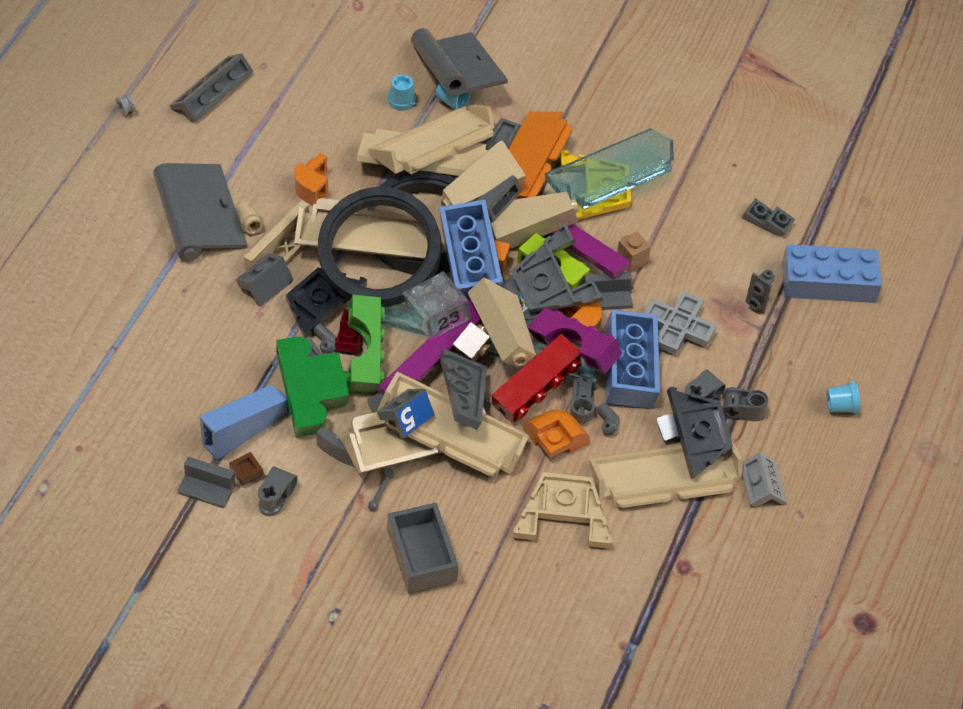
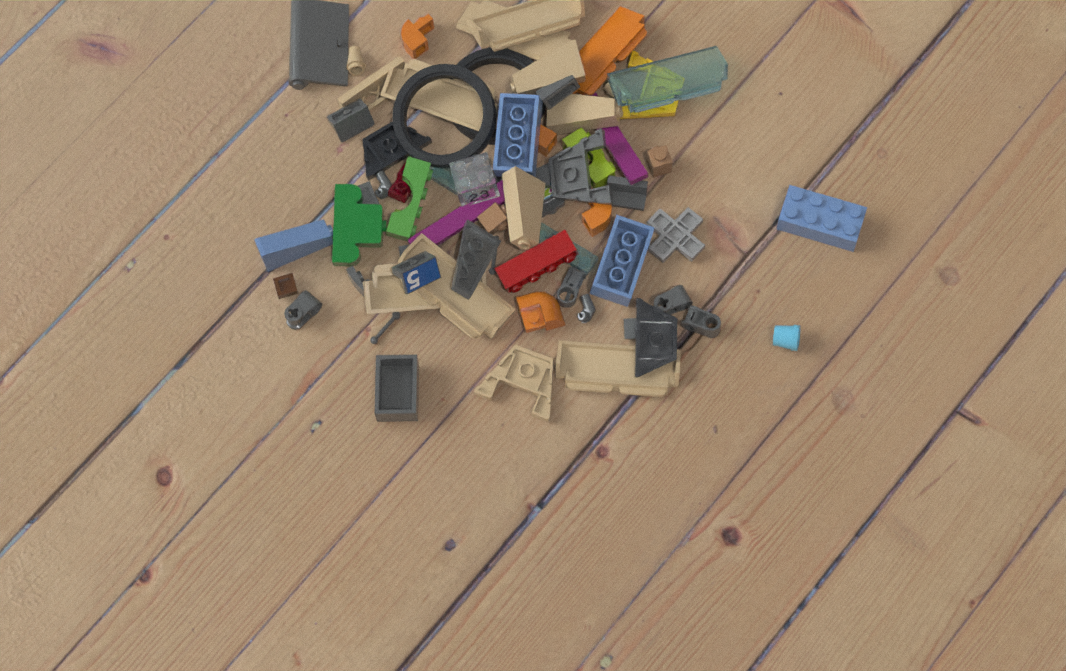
camera: 25 degrees right, 15 degrees up
(207, 482) = (252, 291): dark grey panel -> none
(505, 131) = (588, 27): dark grey tile -> none
(596, 348) = (588, 249): magenta arch -> none
(760, 290) = (752, 223): dark grey hinge -> none
(763, 480) = (693, 393): light grey panel -> none
(767, 219) = (788, 152): dark grey slope -> none

